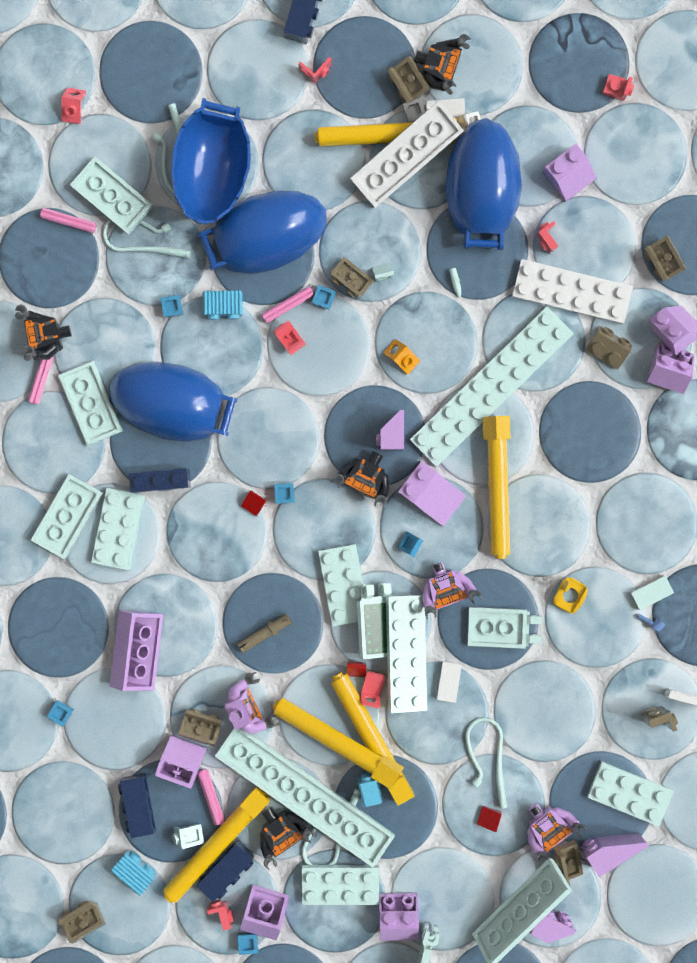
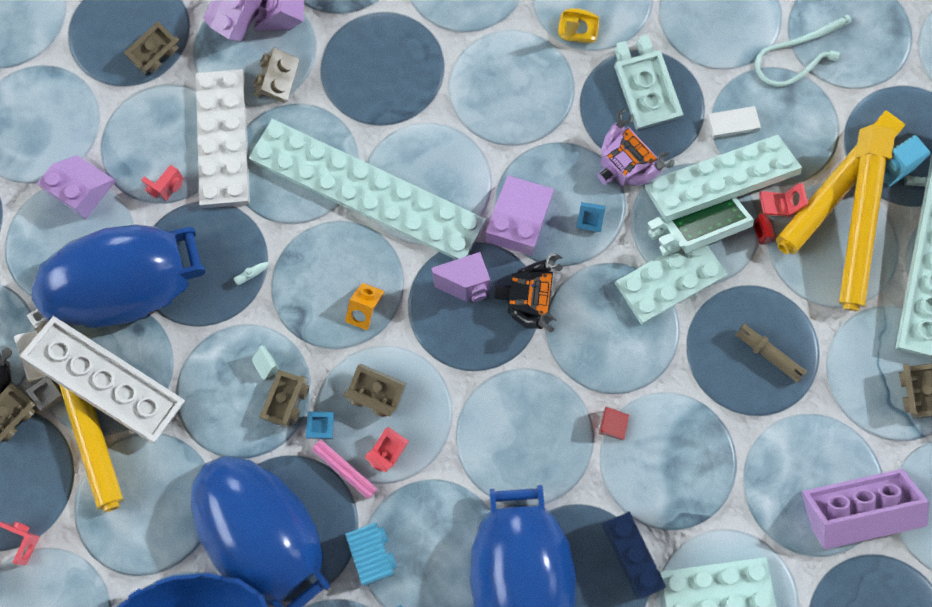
camera: 110 degrees left, 15 degrees down
(243, 709) = (876, 343): lavender torso -> none
(284, 493) = (587, 388): dark azure plate -> none
(334, 343) = (375, 391): none -> dark tan bracket
(489, 818) = (868, 27): red slope -> none
(496, 432) = (420, 162): yellow brick -> none

